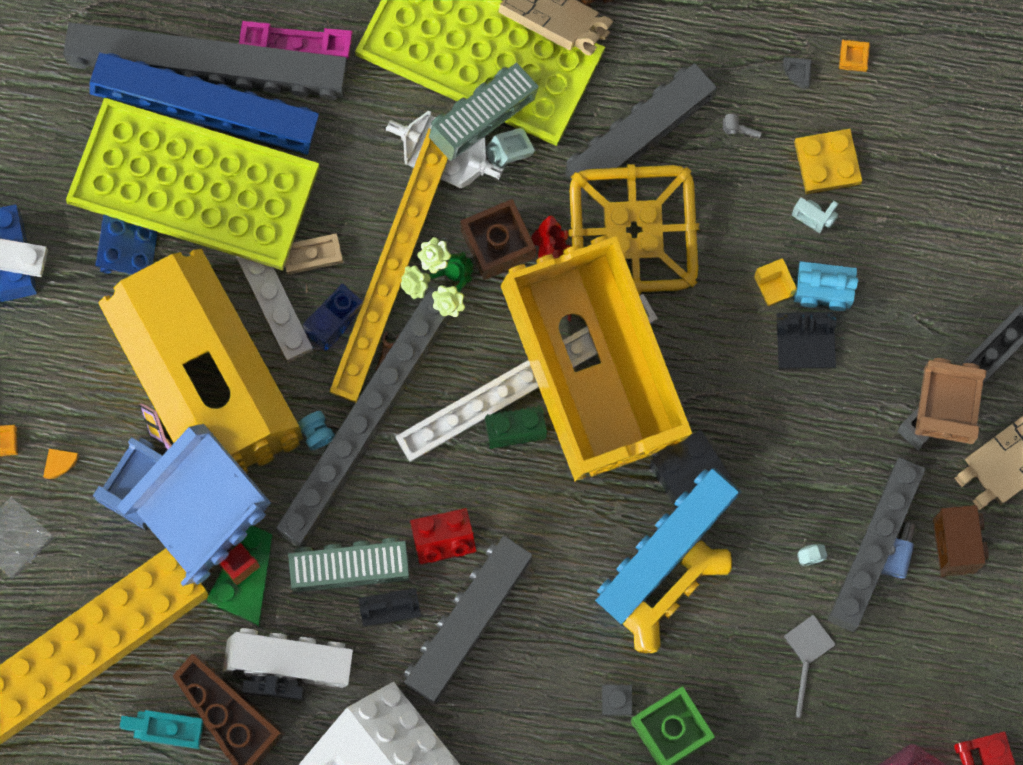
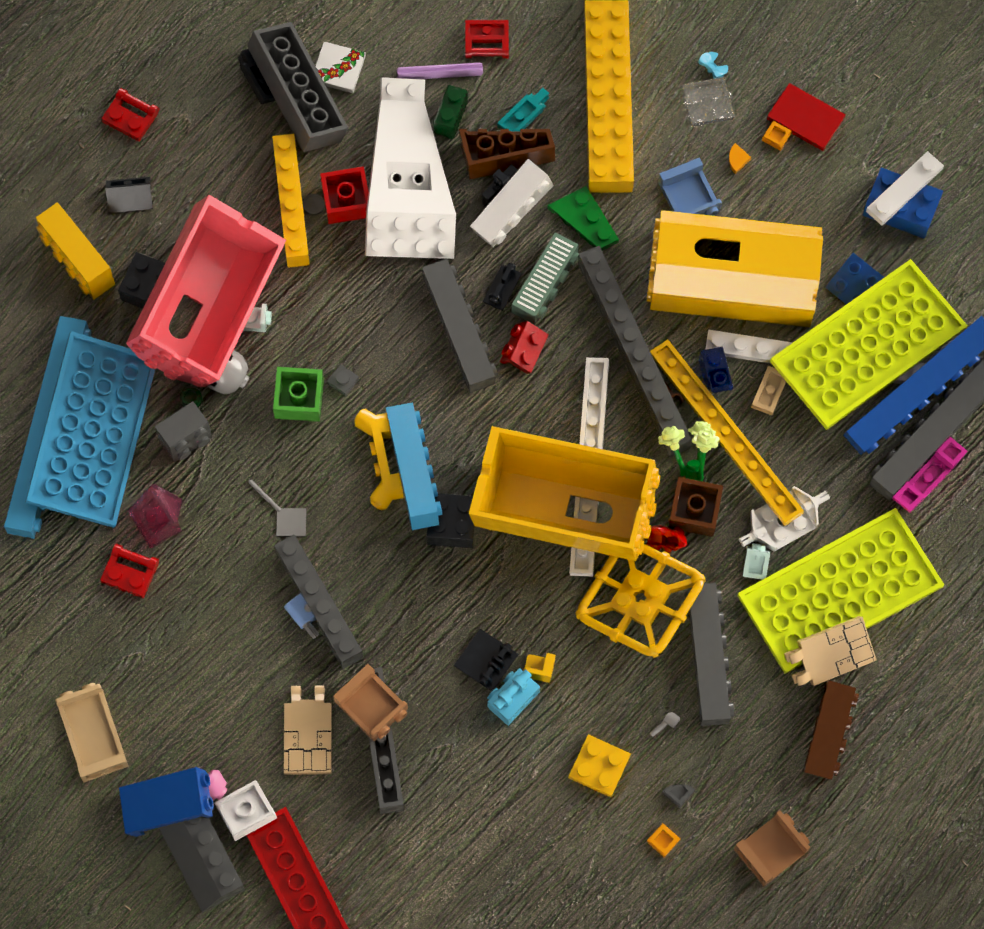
camera: 125 degrees right, 5 degrees down
(197, 502) = (644, 199): medium blue panel -> none
(239, 564) = (593, 210): red panel -> none
(316, 430) = (653, 315): medium azure wheel -> none
(483, 111) = (789, 550): sand green brick -> none
(515, 427) = (564, 425): dark green brick -> none
(812, 216) = (568, 723): light aqua bracket -> none
(812, 554) = (342, 558): light aqua tile -> none
(960, 540) = (279, 650): reddish brown brick -> none

